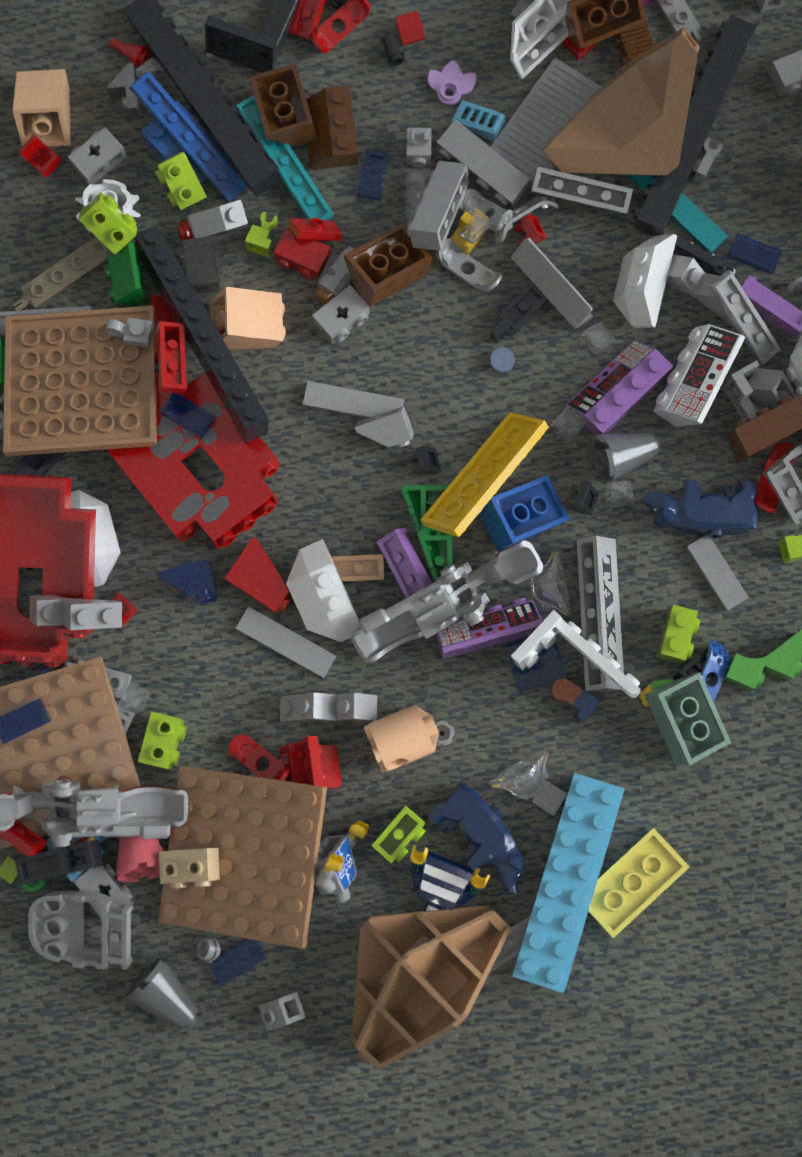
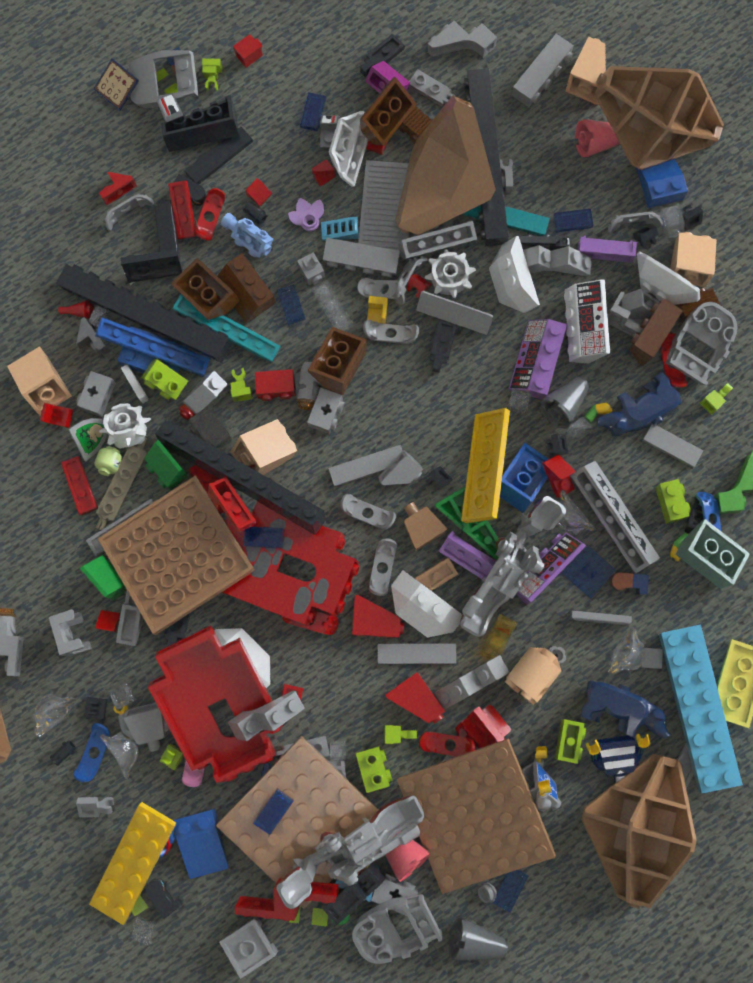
camera: 25 degrees left, 0 degrees up
(21, 248) = (79, 485): none -> red tile
(59, 197) = (87, 436): none -> shield
(67, 237) = (108, 460): none -> yellowish green head
(108, 222) = (134, 436): lime brick -> none
(134, 332) = (194, 501): light grey plate -> none
(146, 168) = (134, 383): none -> white tile
(189, 866) = (444, 845): tan brick -> none
(192, 582) = (332, 649): clear blue slope -> none
(199, 549) = (323, 623): none -> red piece
(207, 716) = (394, 734): none -> lime piece
(256, 691) = (417, 699): none -> red slope
(281, 1011) = (561, 906): light grey brick -> none
(311, 441) = (353, 507): none -> light grey piece
(315, 229) = (275, 363): red plate -> none
(316, 512) = (384, 553): none -> light grey piece
(369, 70) = (248, 235): none -> light blue brick
(374, 504) = (422, 526): none -> medium nougat torso
(388, 676) = (498, 637): none -> clear yellow slope
(438, 205) = (349, 301): light grey brick -> none
(475, 226) = (382, 302): clear slope -> none
(496, 45) = (323, 172): none -> red slope
(502, 360) = (450, 382): sand blue piece -> none
(516, 719) = (600, 618): none -> light grey tile
(545, 637) = (624, 544): white bracket -> none
(563, 532) = (559, 474): none -> red slope
(577, 223) = (459, 269): none -> white brick
(597, 337) = (504, 332): clear slope -> none
(652, 483) = (602, 408): none -> arm
(744, 317) = (594, 266): light grey tile -> none

